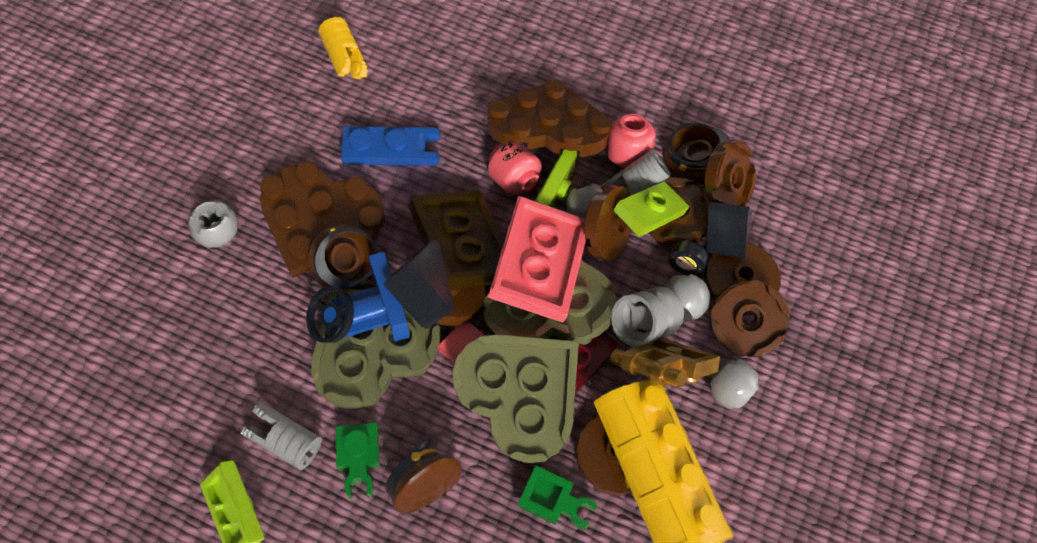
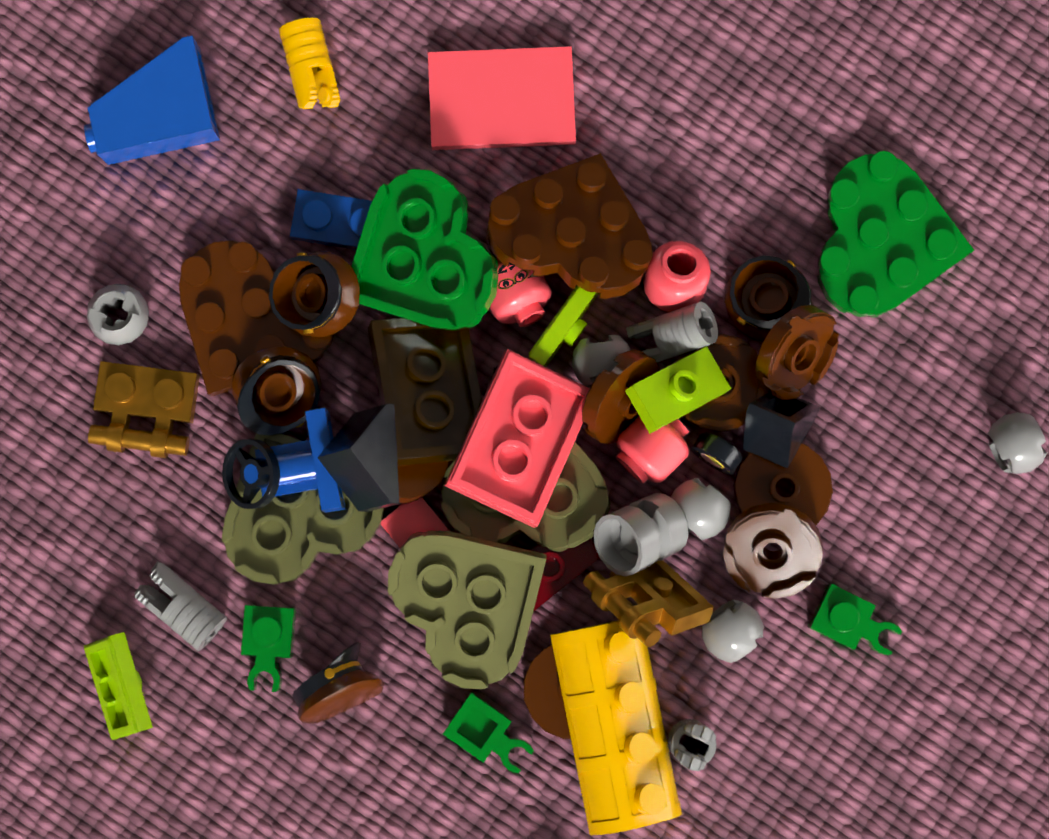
camera: 15 degrees right, 20 degrees up
(231, 88) = (155, 108): none -> blue slope
(238, 280) = (144, 393): none -> pearl gold plate
(364, 182) = (315, 293): none -> reddish brown piece
(442, 149) = (420, 259): none -> green plate
(481, 57) = (501, 98): none -> coral tile
(640, 259) = (653, 454): none -> coral head
(736, 474) = (695, 760): none -> light grey hinge
(767, 106) = (886, 237): none -> green plate
(818, 366) = (847, 620): none -> green plate
(903, 220) = (1017, 443): none -> light grey piece

